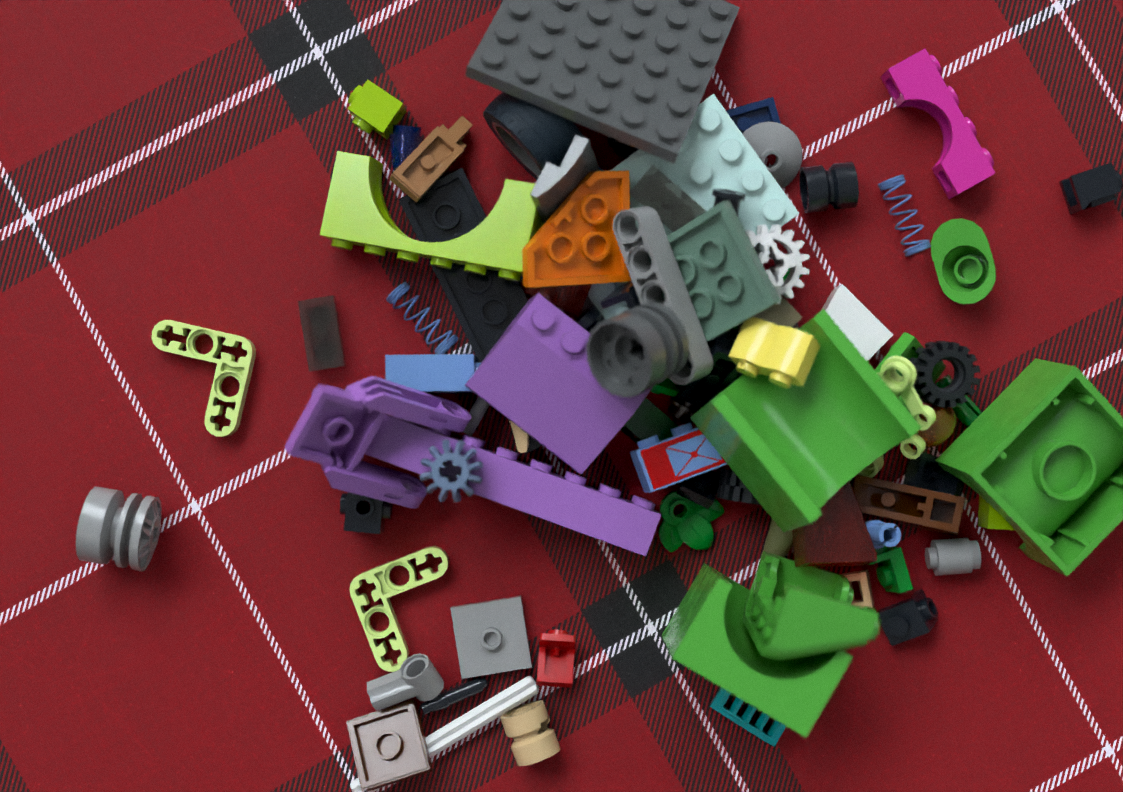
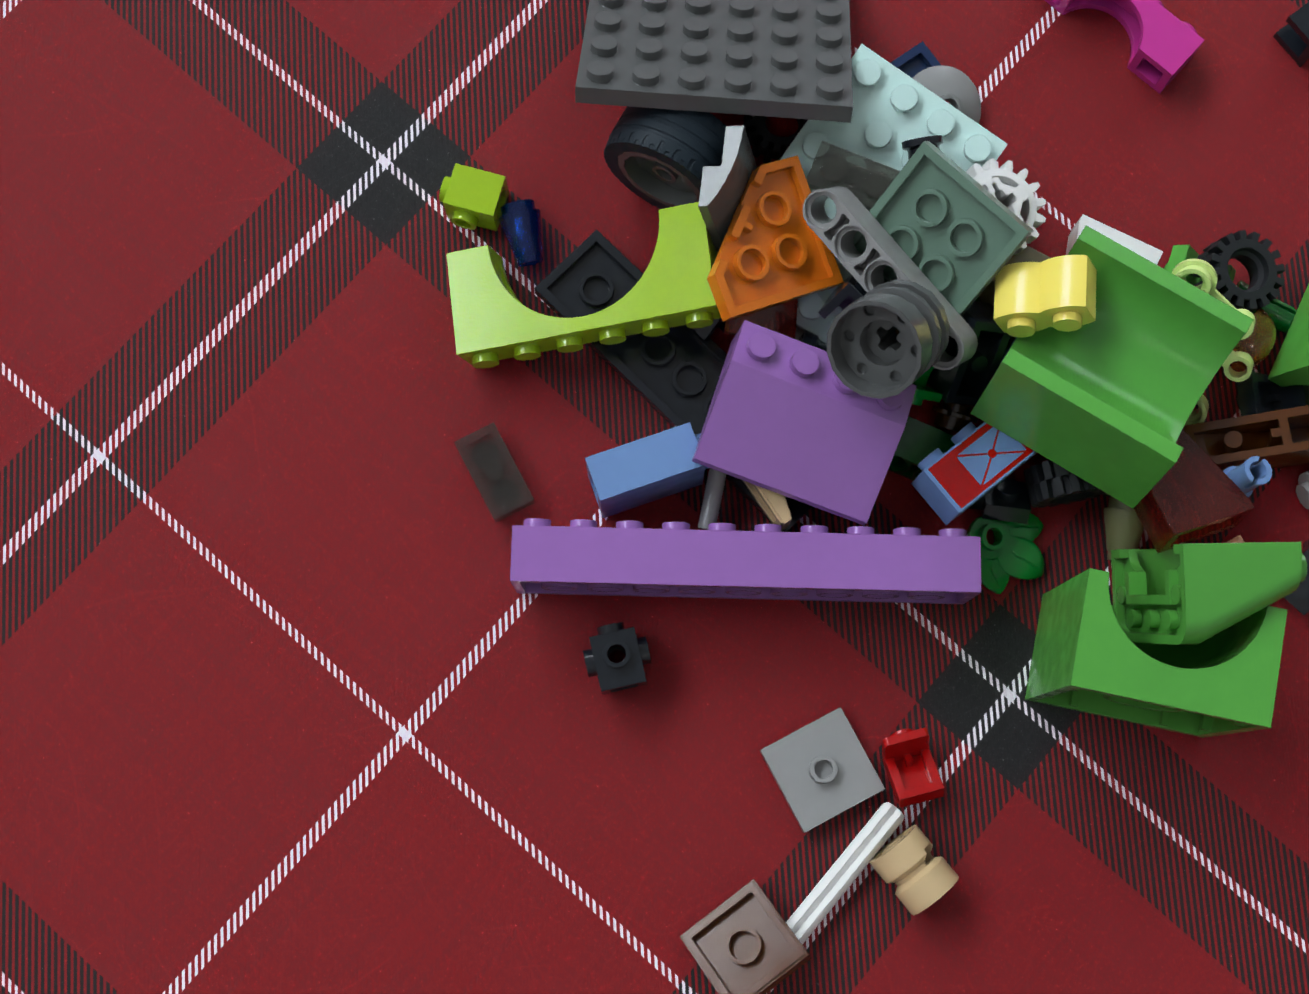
camera: 20 degrees left, 10 degrees down
(118, 528) = (314, 784): light grey wheel -> none
(225, 367) = (390, 550): yellowish green beam -> none
(343, 423) = (565, 548): medium lavender plate -> none
(386, 588) = (673, 753): yellowish green beam -> none
(397, 293) = (569, 397): medium blue piece -> none
(414, 679) = (748, 851): light grey piece -> none
(431, 159) = (558, 230): medium nougat hinge -> none
(445, 481) = (717, 547): sand blue gear -> none
(454, 695) = (801, 858): black piece -> none
(770, 737) = (1208, 758): teal slope -> none
(825, 187) = (1029, 116): black wheel -> none
(892, 570) = (1271, 521): green bracket -> none
(896, 182) = (1091, 93): medium blue piece -> none
(963, 261) = (1208, 146): bright green piece -> none

